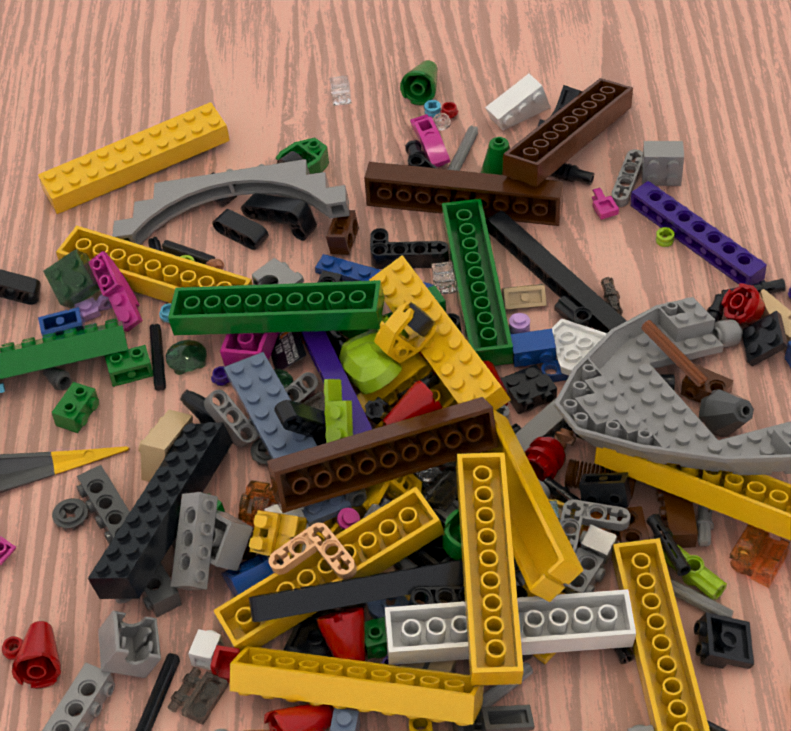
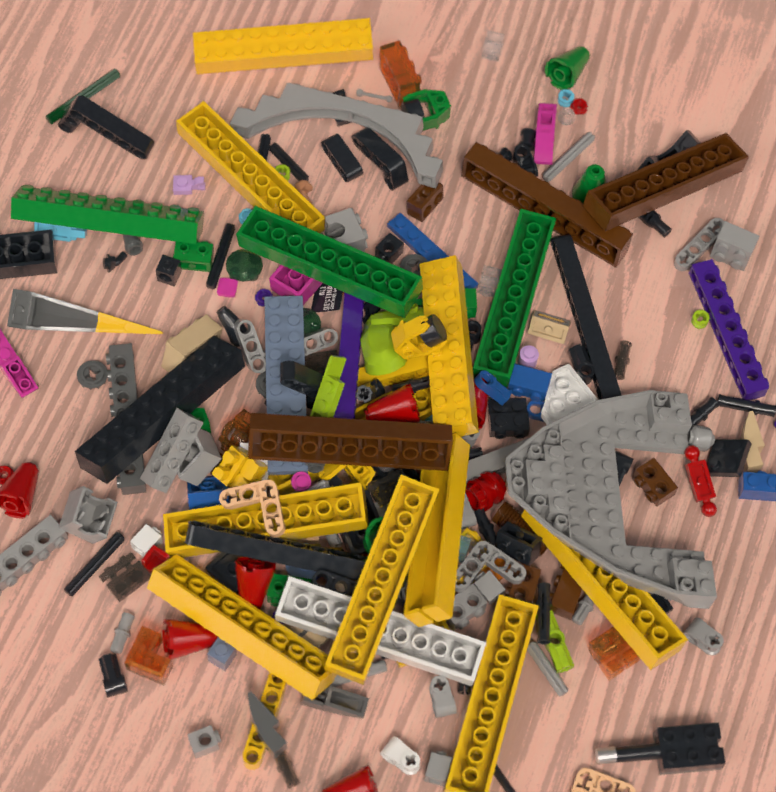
camera: 15 degrees right, 15 degrees up
(43, 402) = (111, 262): none -> black plate
(61, 321) = (154, 193): blue brick -> none
(72, 279) = (180, 154): clear green brick -> none
(75, 407) = (135, 278): green brick -> none
(109, 387) = (168, 270): none -> black brick
(117, 289) = (212, 178): dark pink slope -> none
(178, 382) = (227, 287): none -> dark pink piece
(259, 137) = (398, 71): none -> clear orange brick
(417, 253) = (473, 241): black beam -> none
(500, 363) = (492, 387): none -> blue piece
(518, 103) = (641, 127): white wedge -> none
(604, 206) = (663, 265): dark pink plate -> none
(606, 672) = (442, 701): none -> light grey piece
(674, 353) = (639, 444): dark orange axle -> none
(723, 641) = (546, 712): black plate -> none
(724, 412) = (653, 514): dark grey cone -> none
(743, 304) = (726, 419): red cone -> none
(750, 369) = (700, 481): none -> red plate

